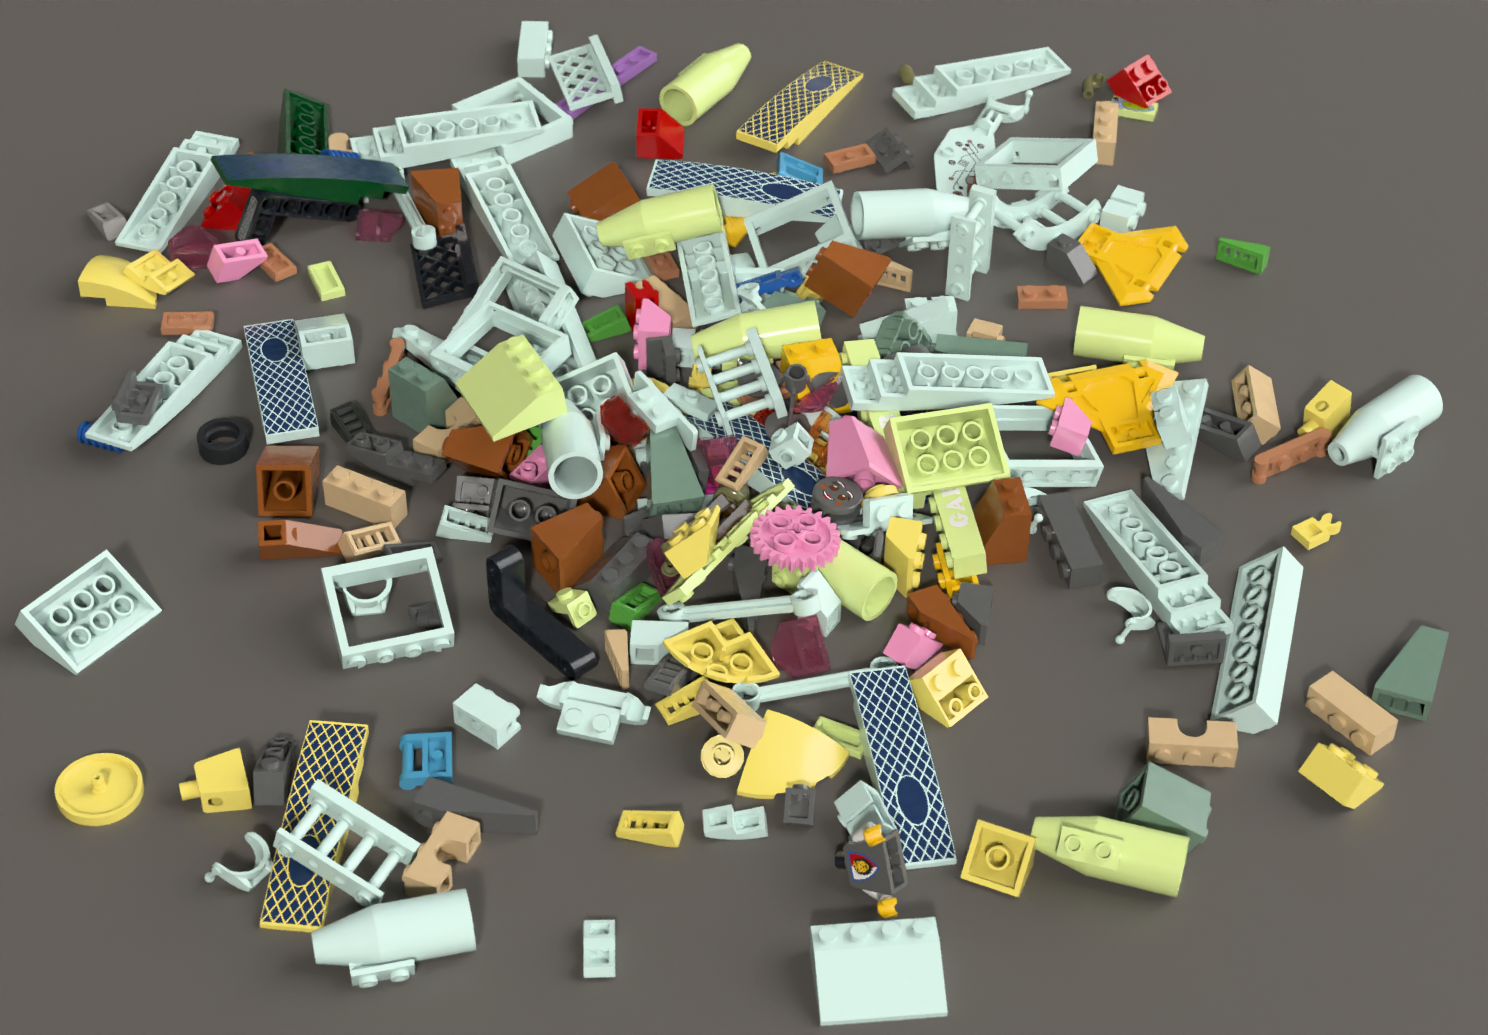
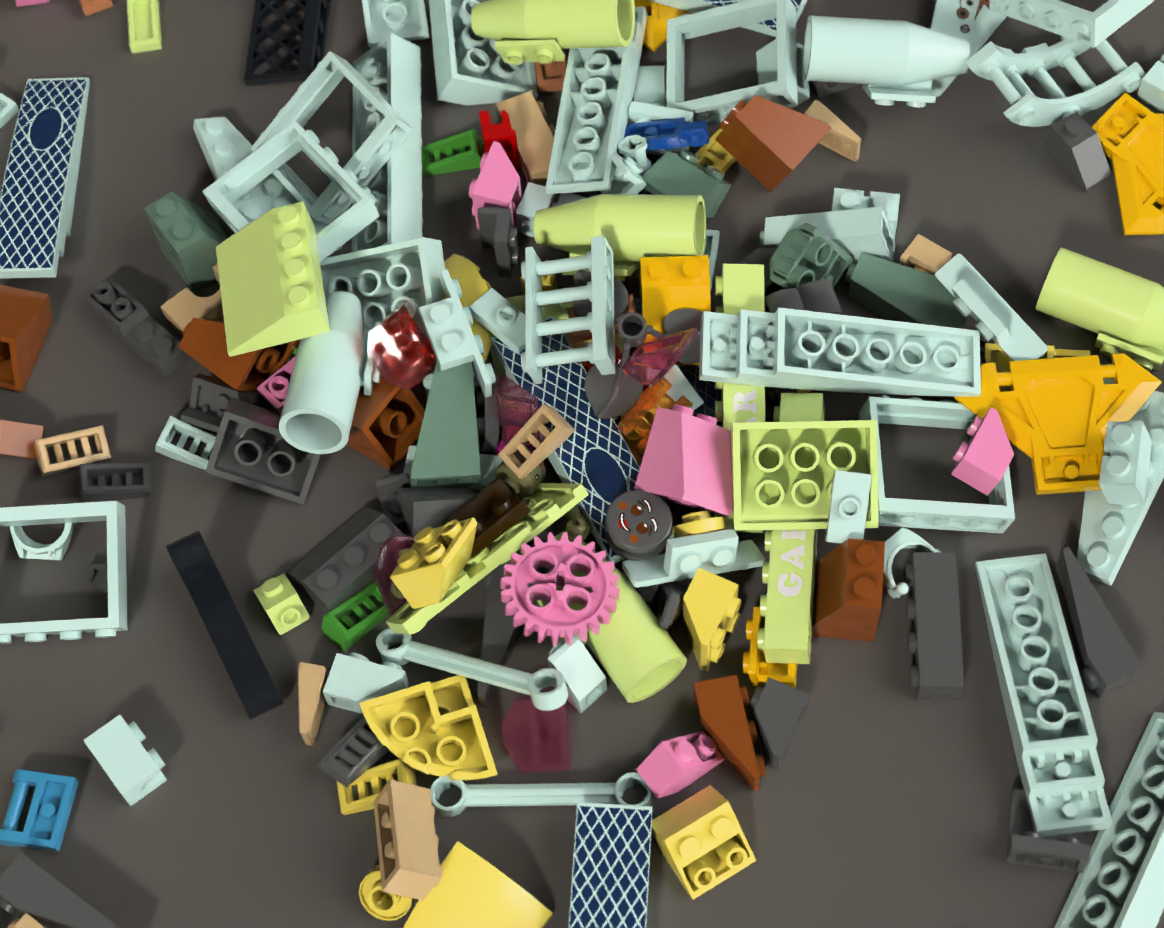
camera: 20 degrees right, 20 degrees up
(325, 341) = (109, 121): light aqua slope -> none
(348, 419) = (103, 245): pearl dark grey slope -> none
(364, 497) = (83, 382): tan brick -> none
(381, 393) = (177, 179): nougat plate -> none
(567, 546) = (295, 517): dark orange slope -> none
(592, 711) = (255, 777): light aqua plate -> none
(791, 445) = (602, 429): light aqua brick -> none
(844, 735) = (544, 882): yellowish green tile -> none
(970, 242) = (943, 118): light aqua fence -> none
(985, 461) = (848, 506): none -> light aqua plate
(1036, 345) = (990, 311): none -> light aqua bracket
(1041, 297) = (1024, 202): nougat plate -> none
(1137, 605) = (996, 760): light aqua helmet -> none

